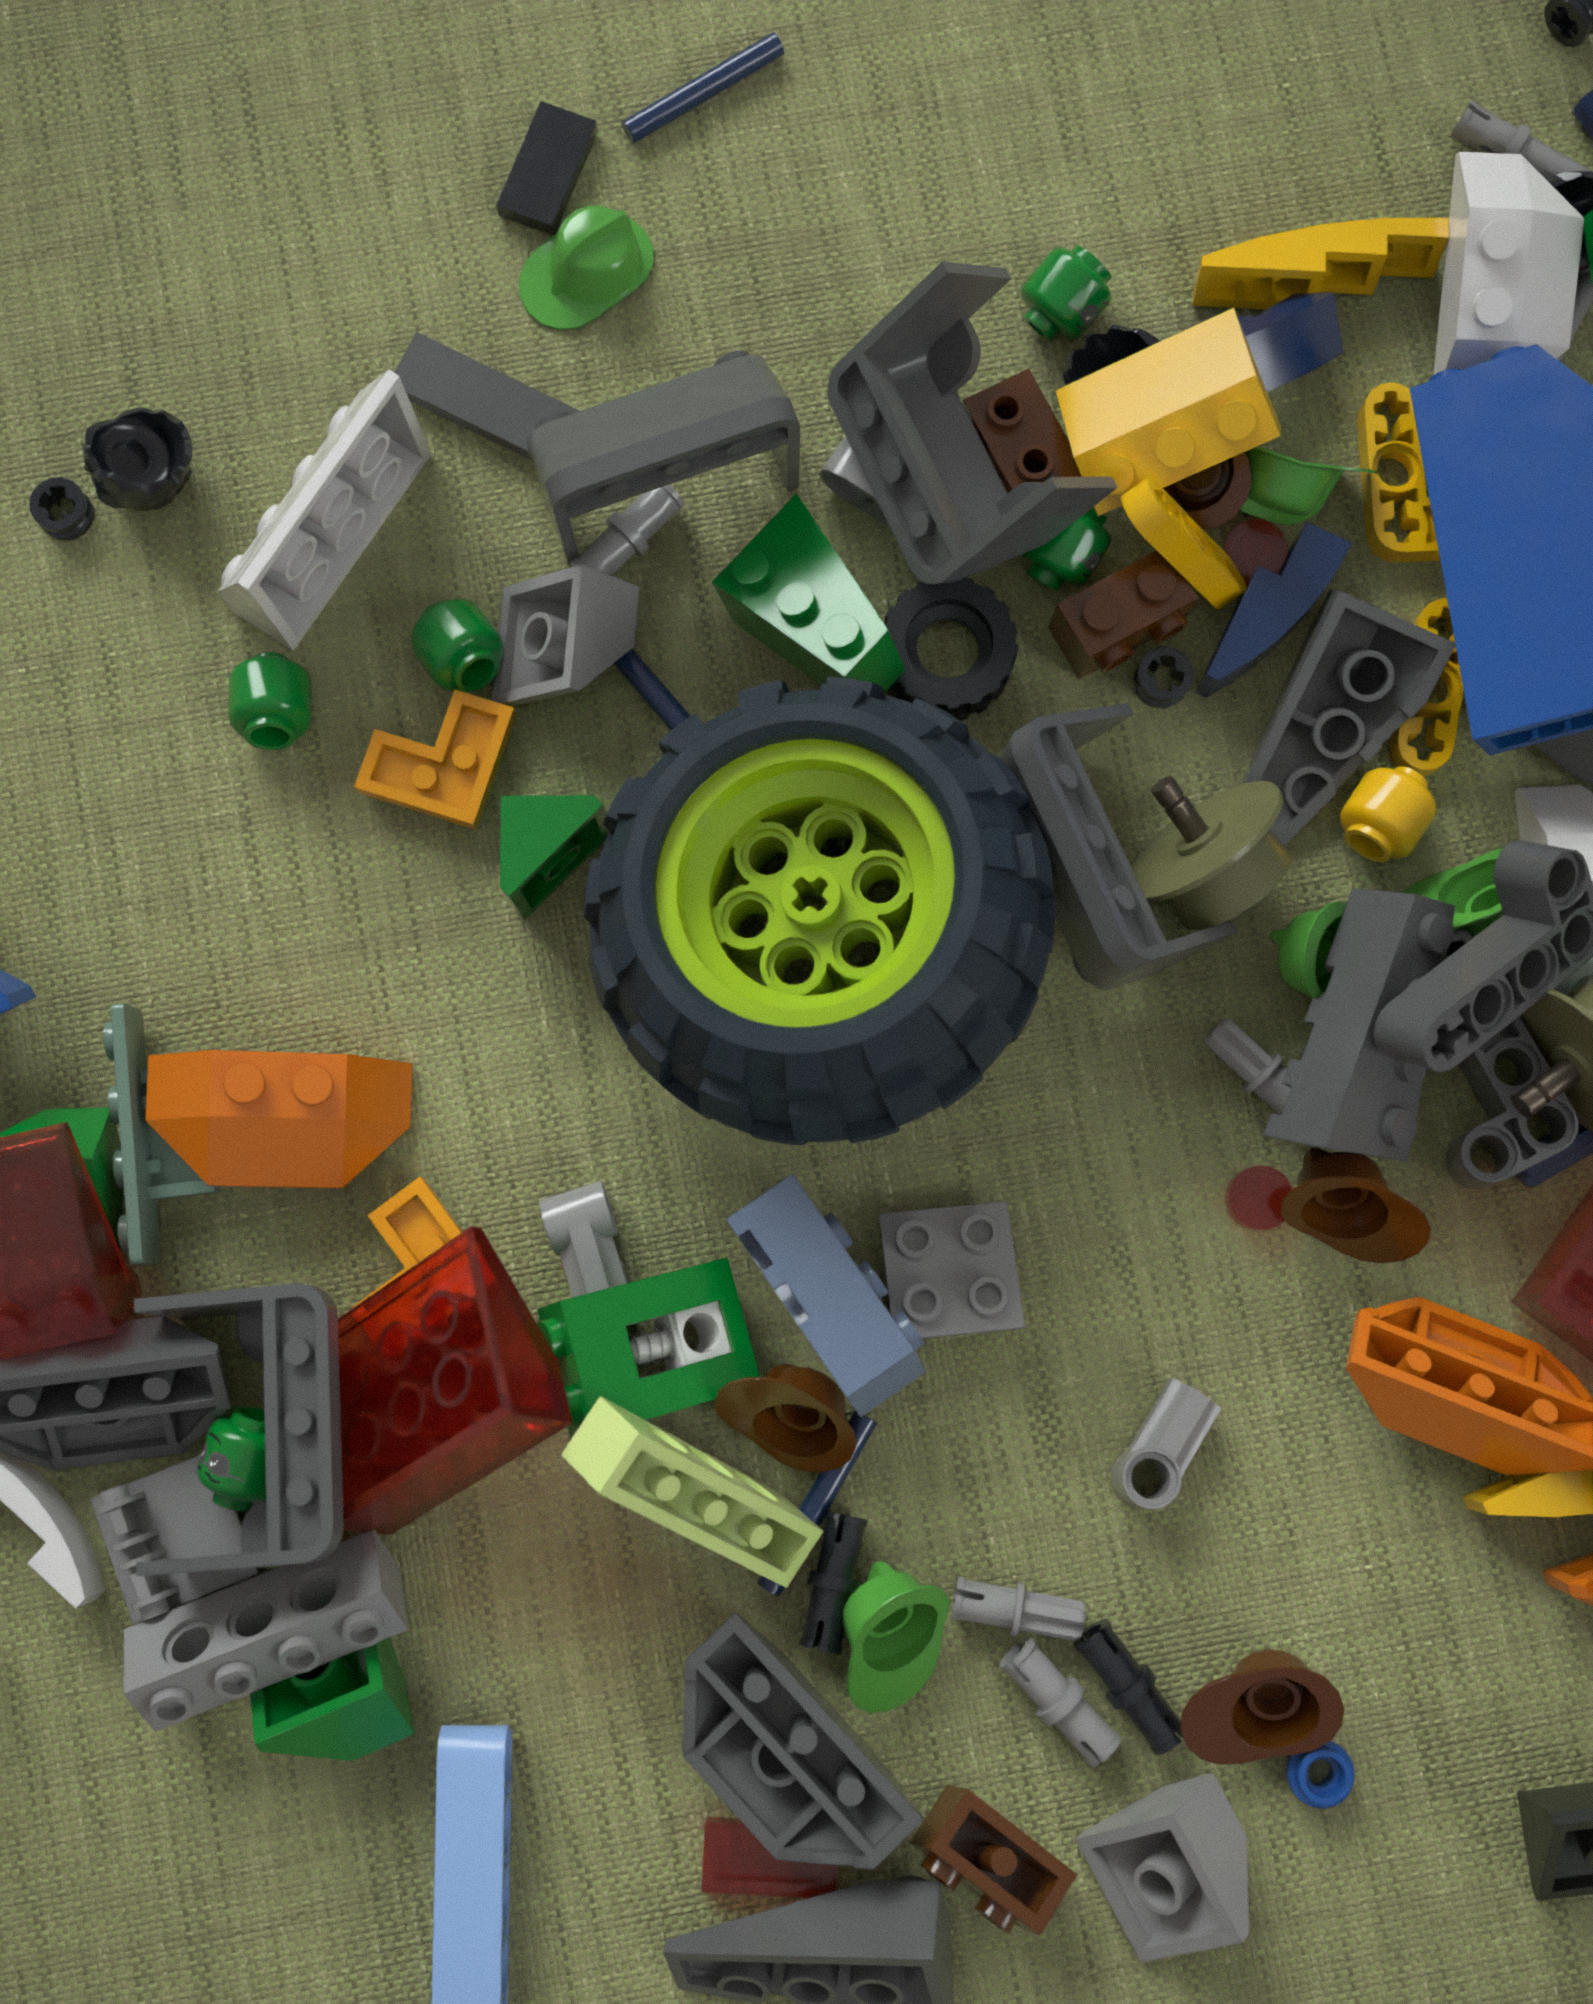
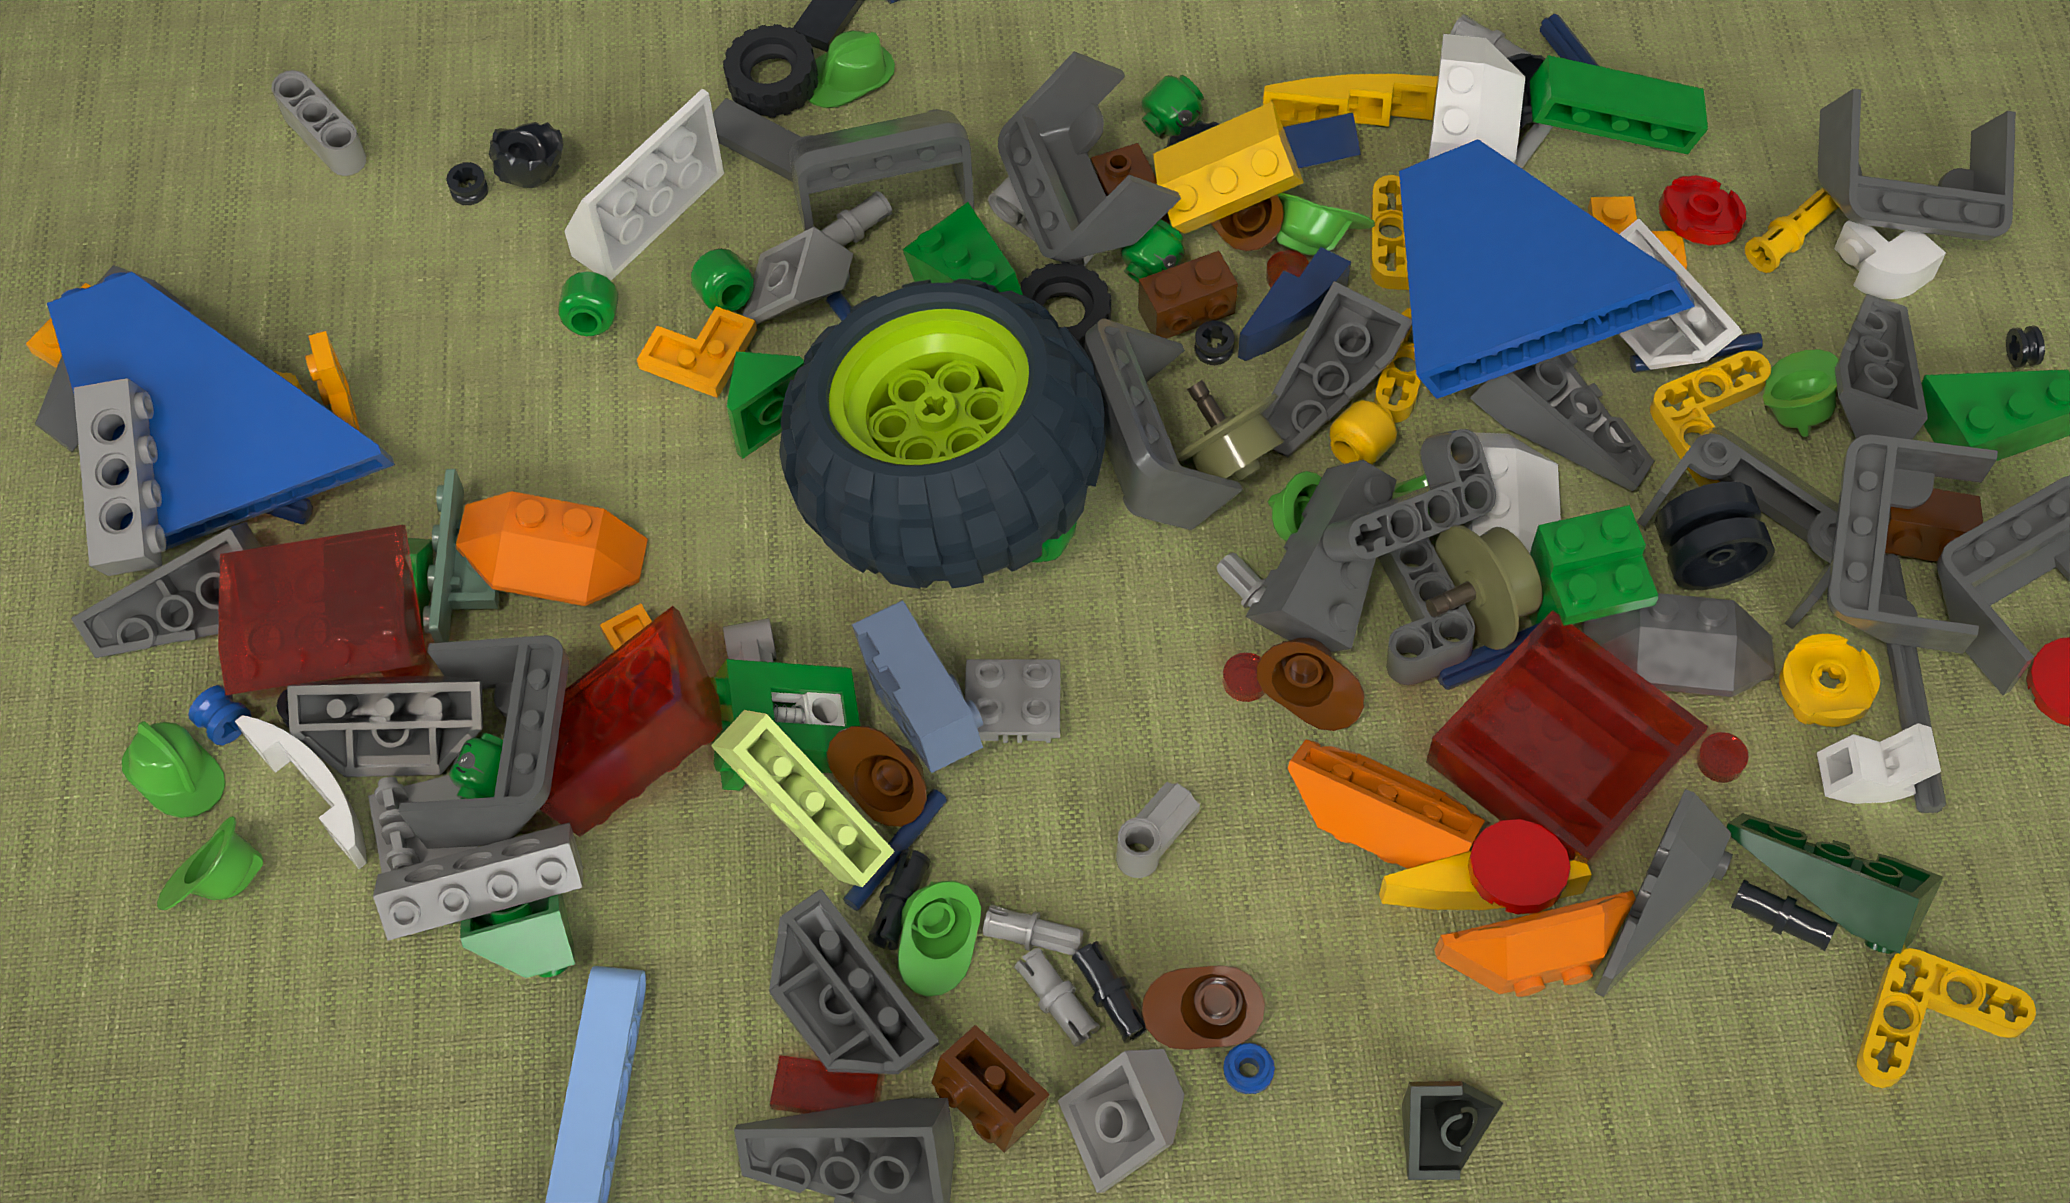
camera: 10 degrees right, 20 degrees down
(467, 234) = (766, 44): none -> black tyre
(1183, 543) = (1229, 247): yellow beam -> none

